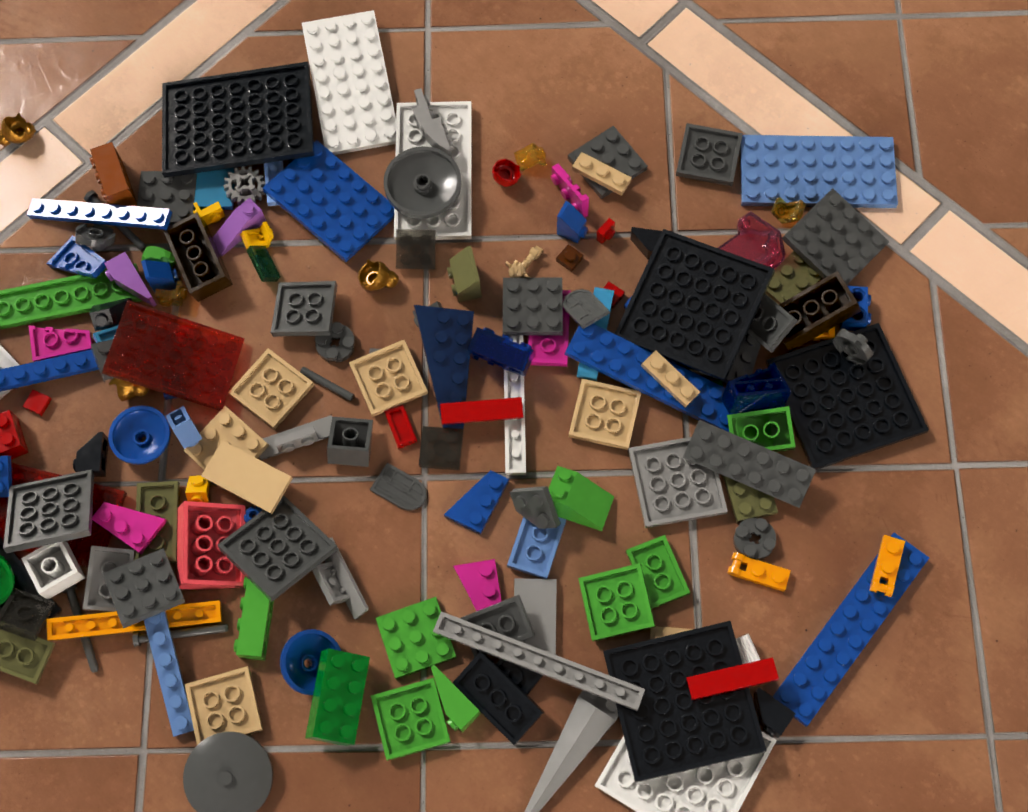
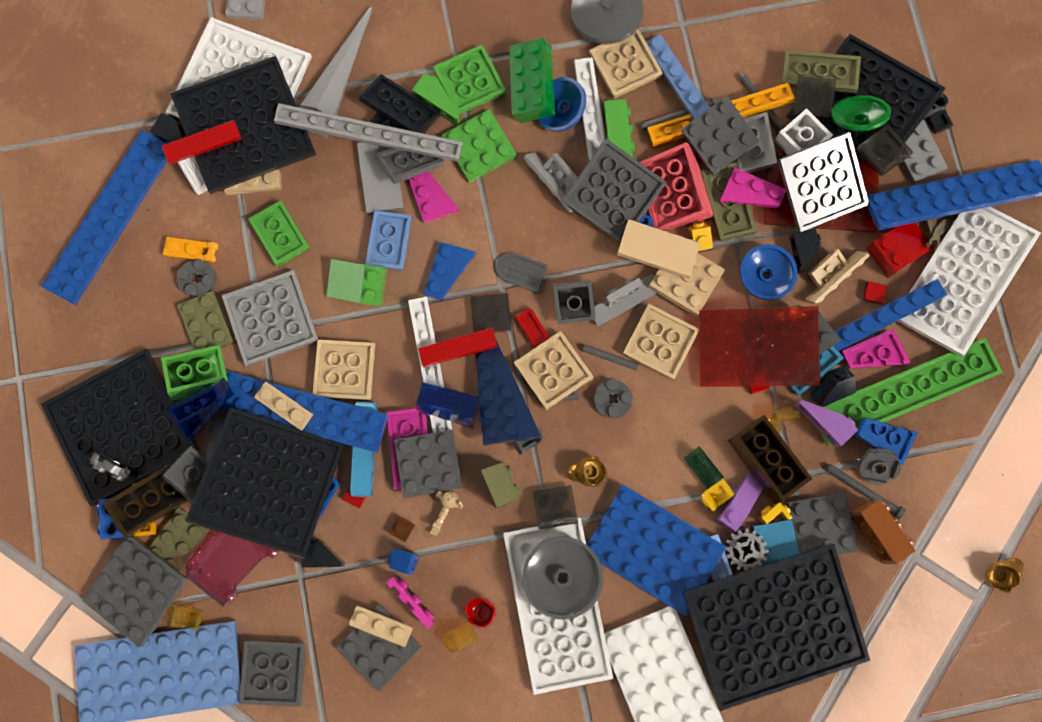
camera: 165 degrees right, 10 degrees up
(72, 426) = (831, 272): none -> tan bracket
(99, 213) = (882, 489): plate -> none
(158, 254) = (810, 454): bright green rock -> none
(160, 275) = (800, 433): blue slope -> none
(184, 427) = (729, 283): medium blue brick -> none
(281, 631) = (592, 114): none -> white plate
(304, 308) = (650, 424): dark grey plate -> none
(429, 126) = (564, 644): light grey slope -> none
(536, 506) = (391, 263): dark grey plate -> none
(584, 307) = (375, 465): dark grey window -> none
(606, 231) = (367, 562): red plate -> none
(616, 602) = (310, 198): bright green plate -> none
(749, 463) = (203, 338): dark grey plate -> none
(887, 565) = (76, 268): light orange plate -> none

